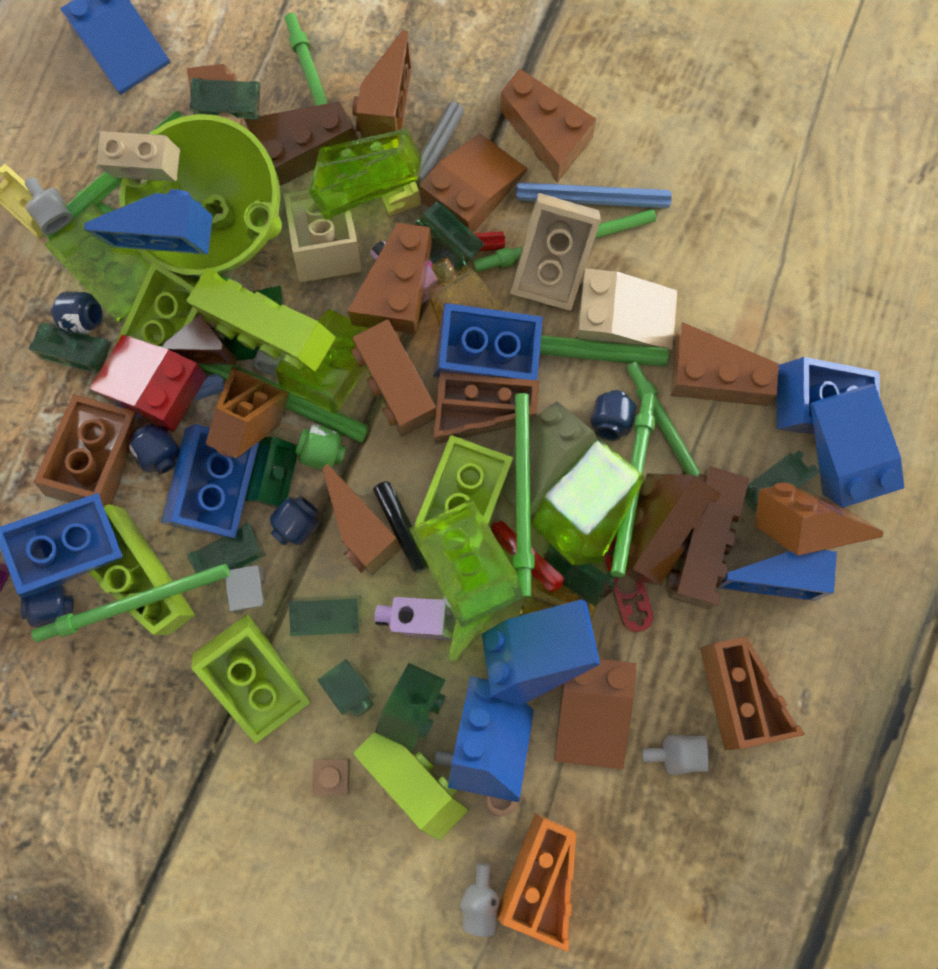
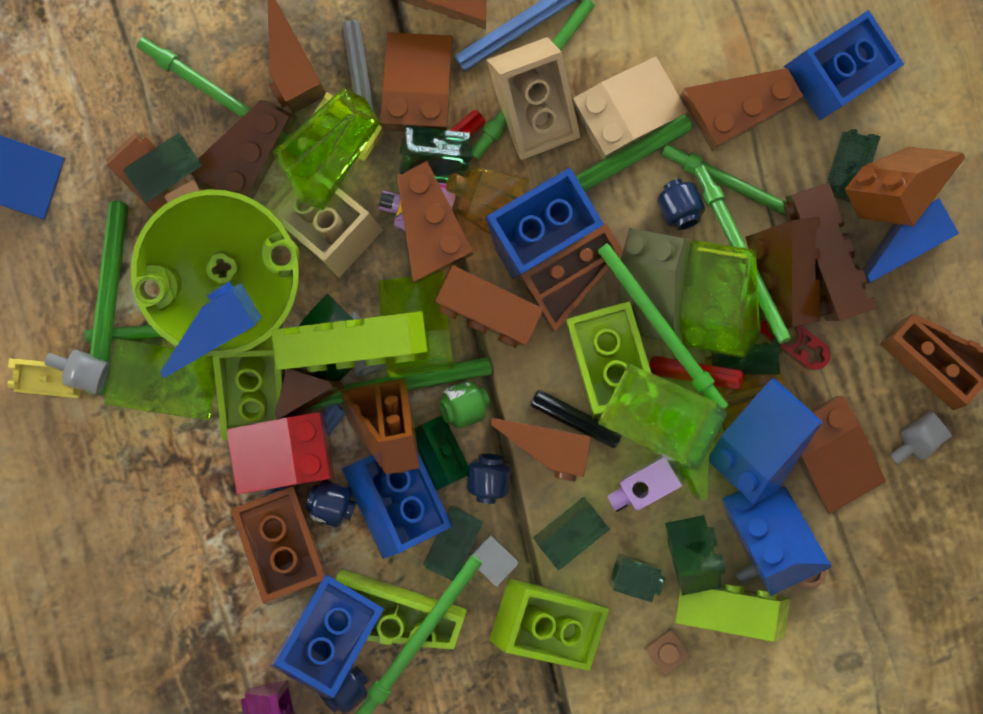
camera: 40 degrees left, 10 degrees up
(70, 349) = (189, 470): clear green hinge -> none
(76, 312) = (171, 438): dark blue head -> none
(138, 156) = (146, 280): tan brick -> none
(480, 904) = (851, 661): light grey piece -> none
(540, 884) = (885, 612): orange wedge -> none
(855, 447) = (895, 96): blue slope -> none

